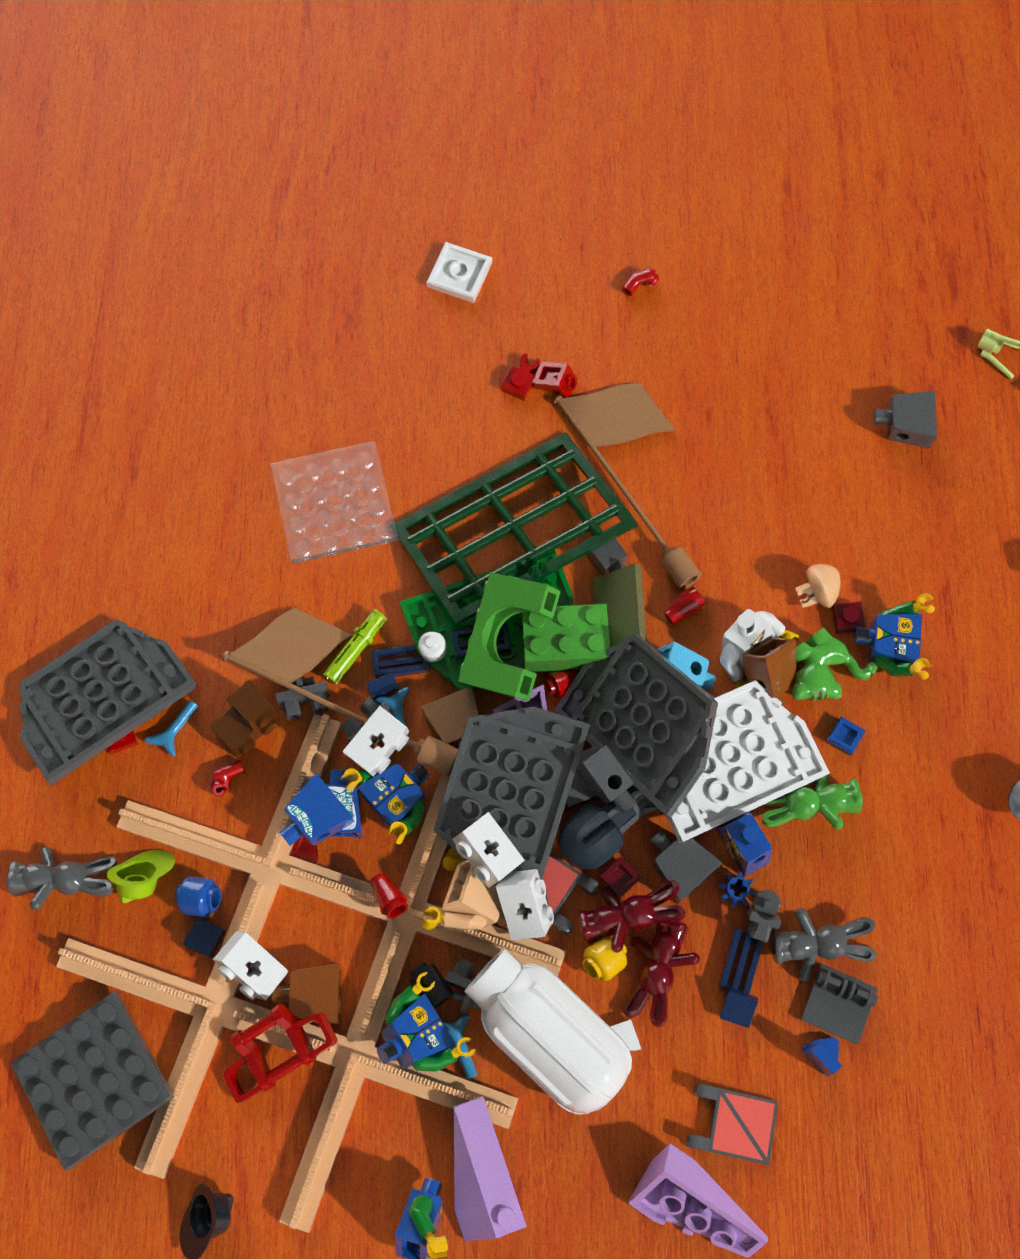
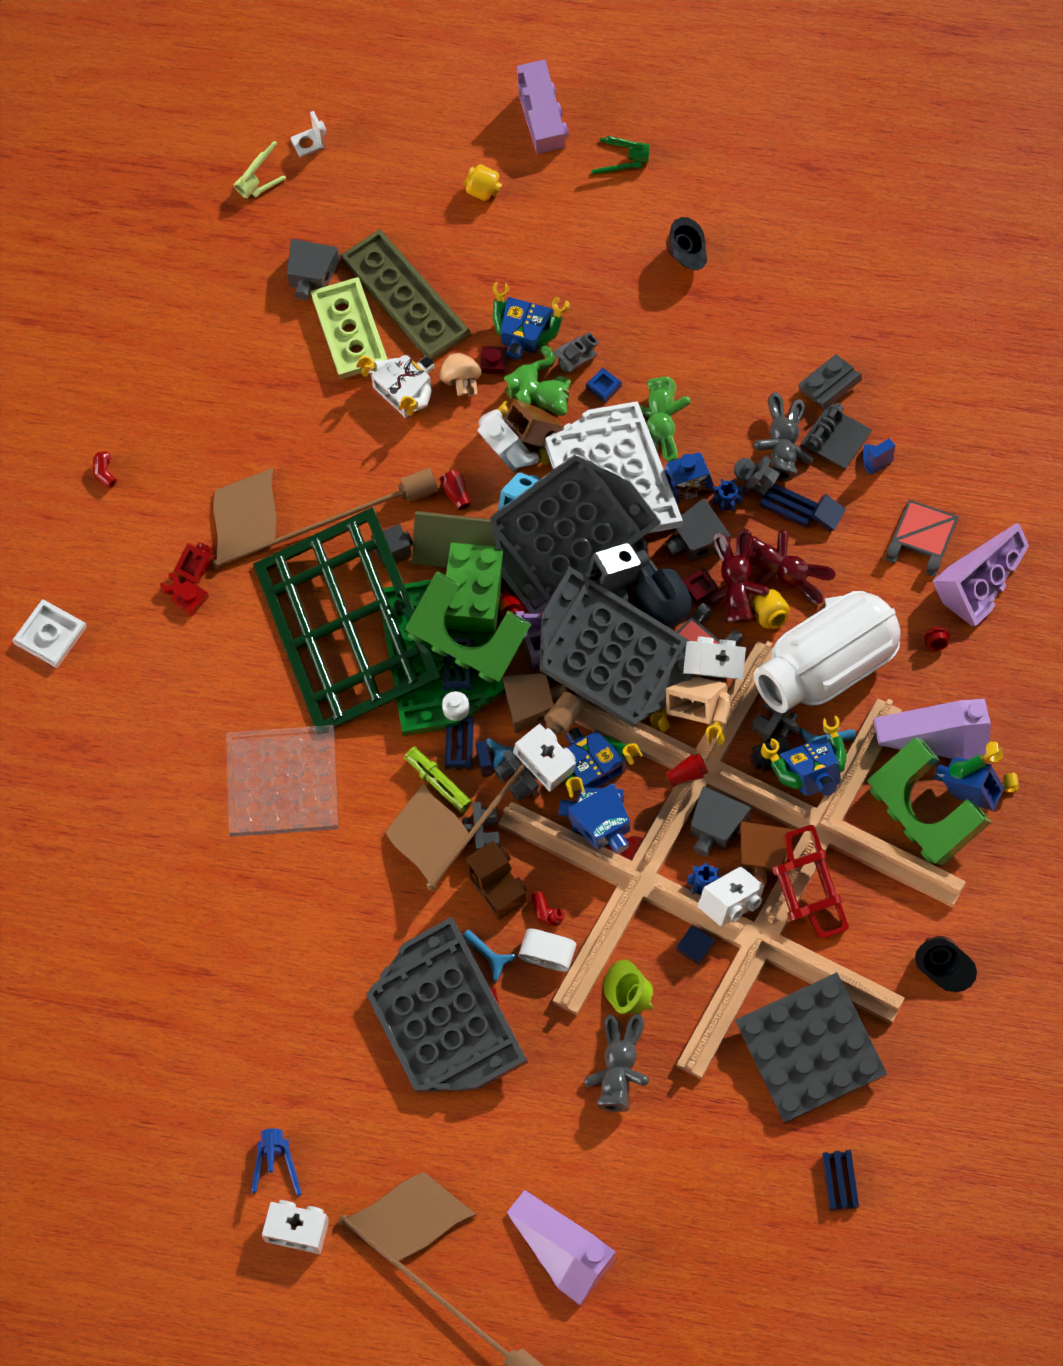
camera: 75 degrees left, 5 degrees down
(179, 785) = (547, 950): none -> white beam
(198, 896) = (657, 942): blue head -> none
(278, 929) = (701, 877): none -> blue gear
(343, 937) = (716, 821): none -> dark grey torso
(349, 1189) = (894, 786): none -> bright green arch
(501, 855) = (664, 673): white brick -> none
(604, 1158) = (937, 639): none -> red plate
(796, 529) = (400, 381): none -> white torso
(847, 485) = (333, 321): none -> yellowish green plate
(873, 698) = (576, 352): none -> dark grey hips
(903, 517) = (405, 295): none -> olive tile
(908, 986) = (830, 381): none -> dark grey plate

